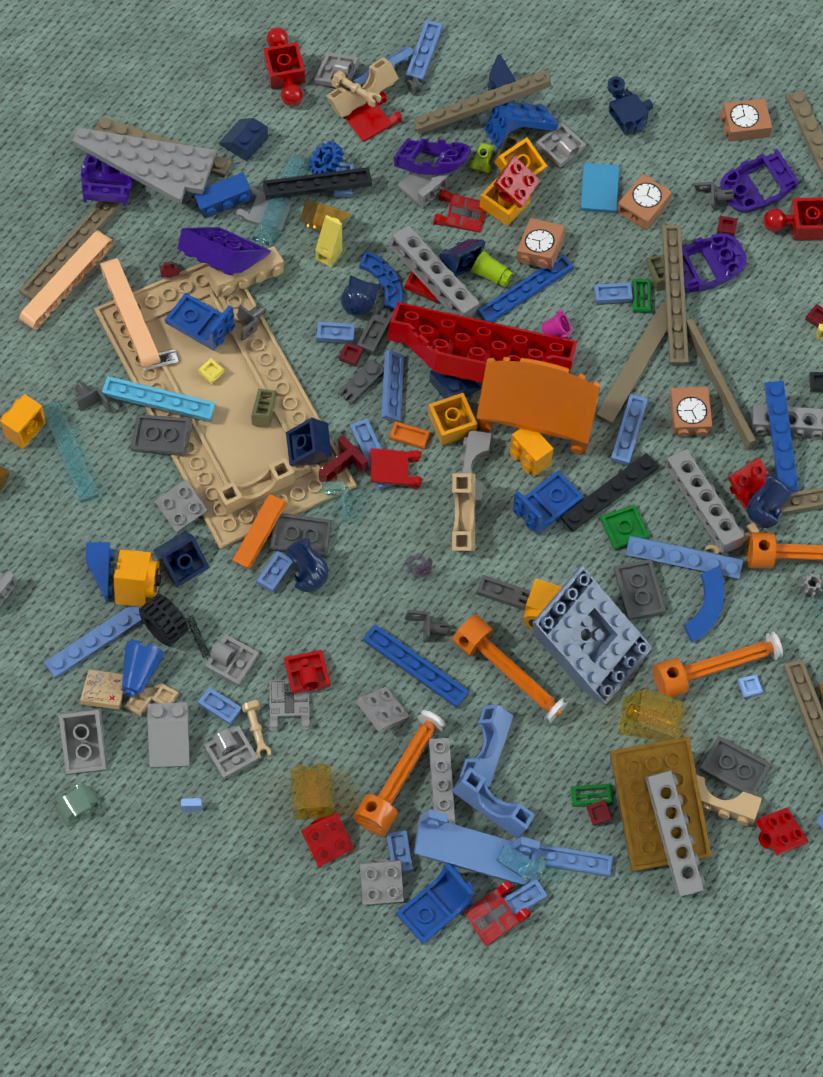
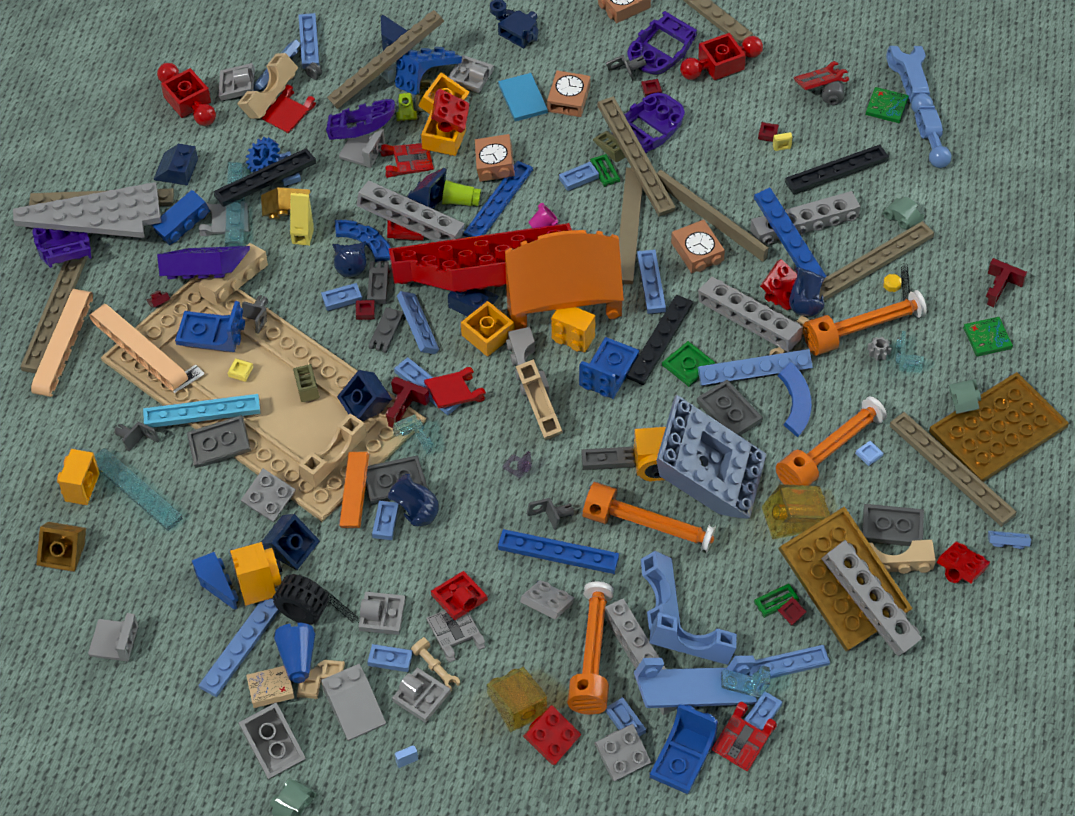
camera: 20 degrees left, 10 degrees down
(340, 78) = (281, 90): tan piece -> none
(409, 435) = (453, 358): orange tile -> none

